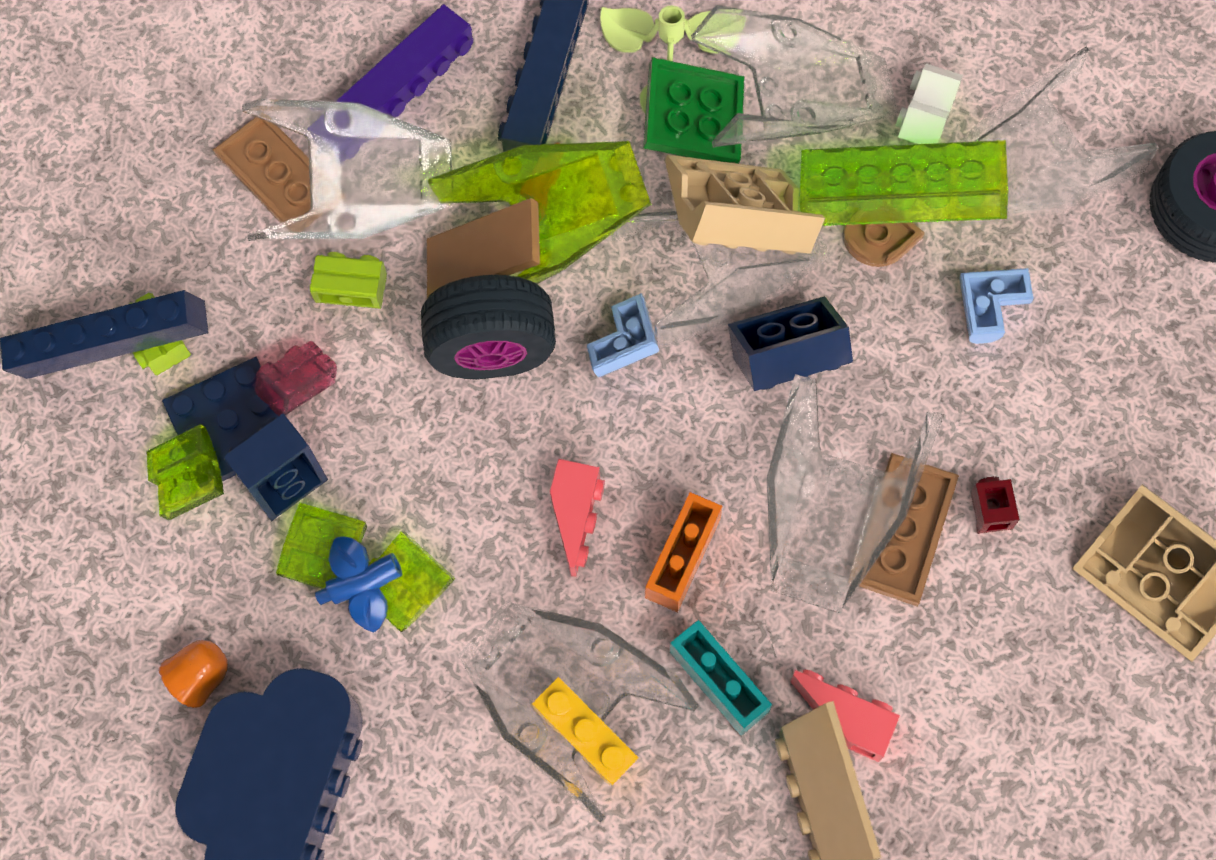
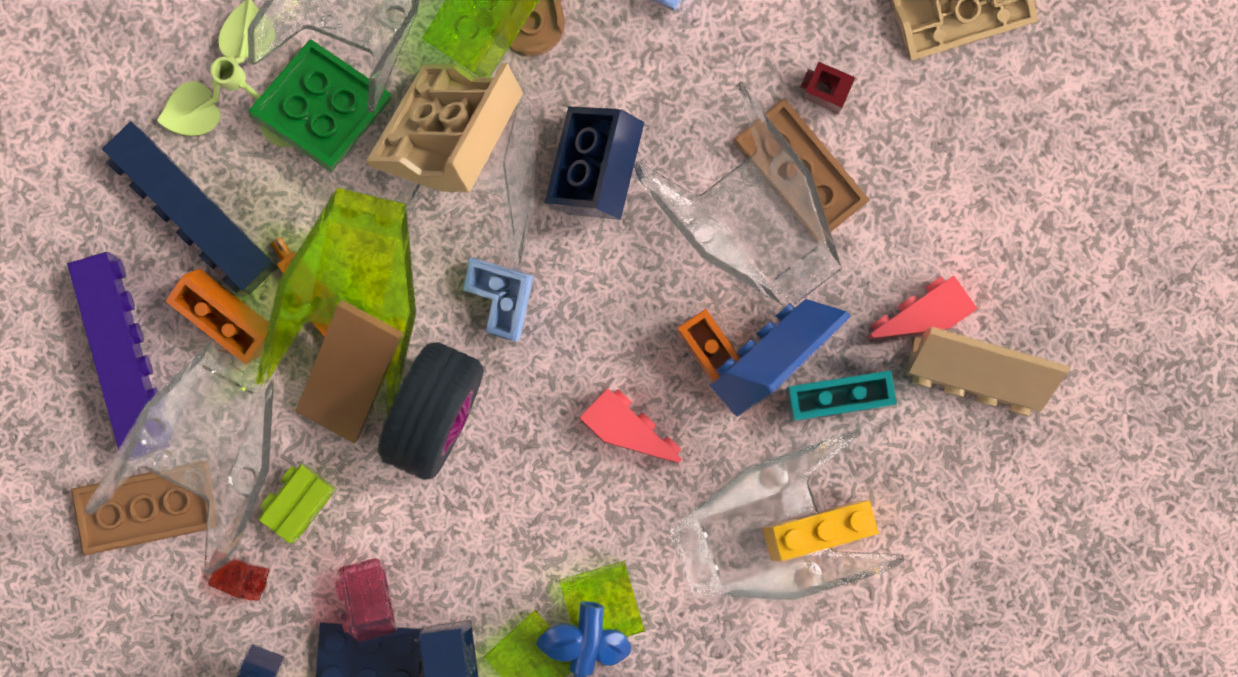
camera: 60 degrees left, 15 degrees up
(259, 274) = (240, 579): none -> clear red bracket
(471, 126) = (220, 315): none -> orange brick
(719, 587) = (776, 354): none -> blue slope

